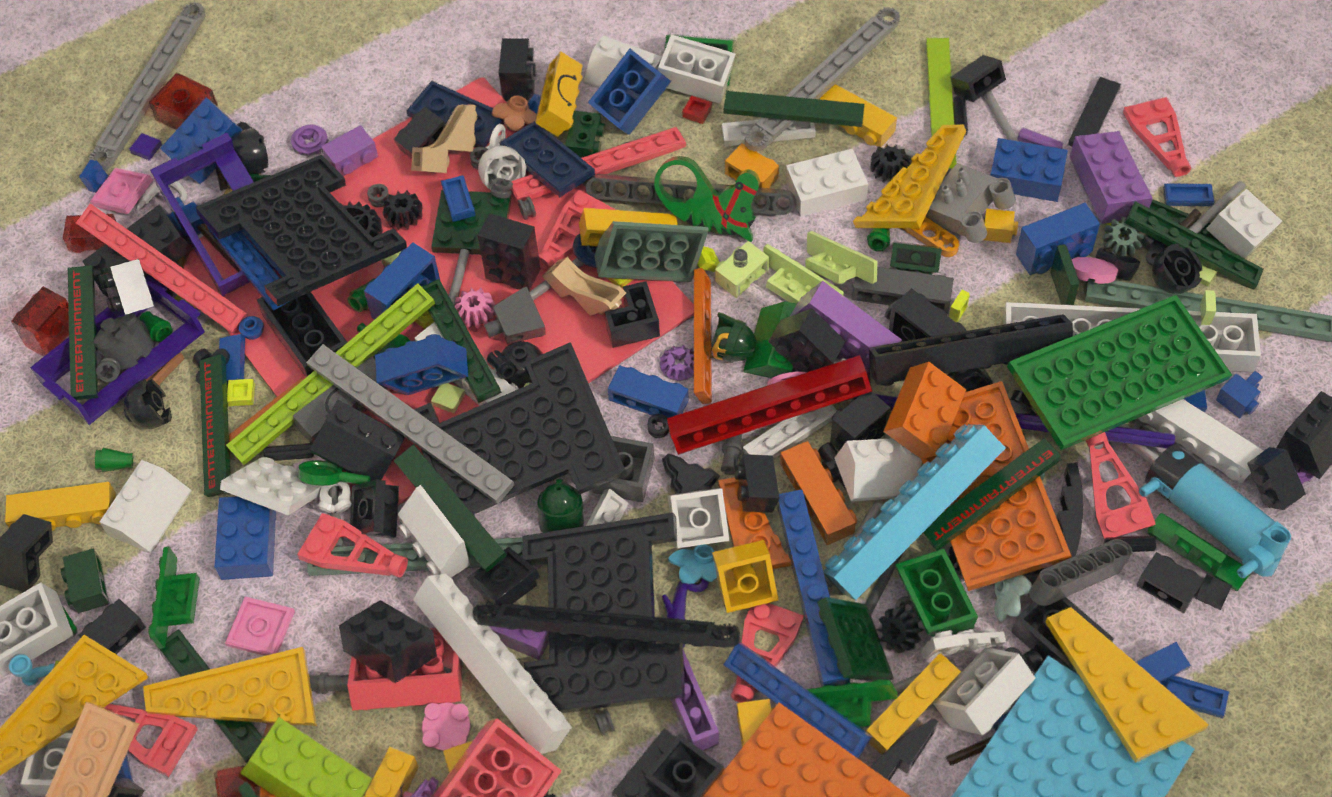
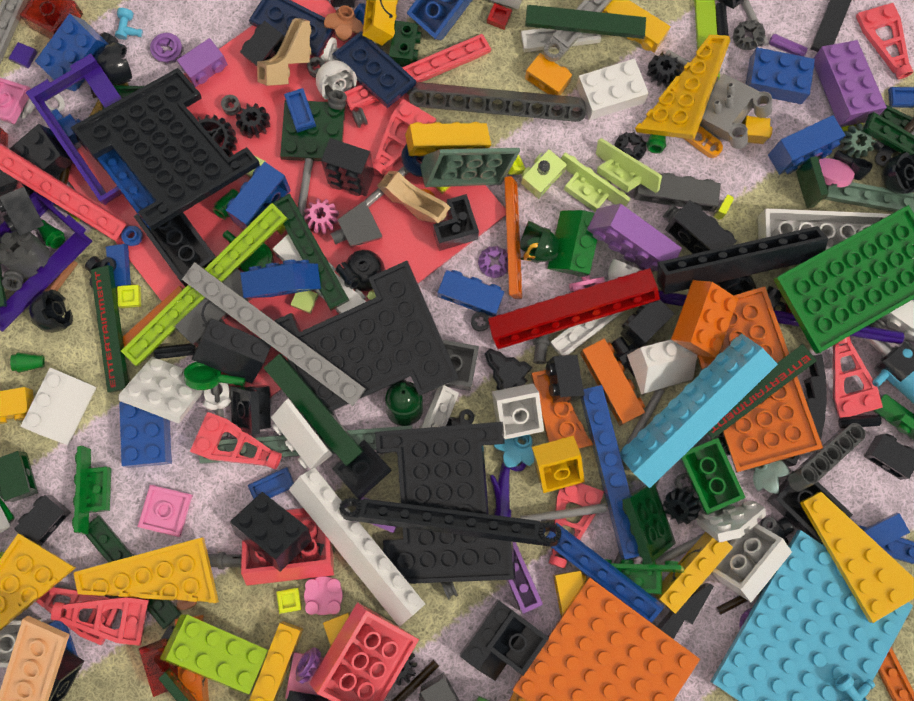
camera: 10 degrees left, 20 degrees up
(207, 747) = (131, 624): none -> coral plate
(265, 107) = (126, 15): none -> medium azure piece
(398, 597) = (272, 484): none -> blue tile
(403, 732) = (289, 600): none -> neon yellow tile
(722, 212) = (517, 119): green animal -> none
(771, 634) = (566, 513): none -> light grey bar
(807, 341) = (605, 254): black brick -> none
(859, 242) = (634, 139): none -> black gear
(915, 257) = (688, 162): dark green brick -> none
(988, 136) = (748, 43): none -> dark grey gear

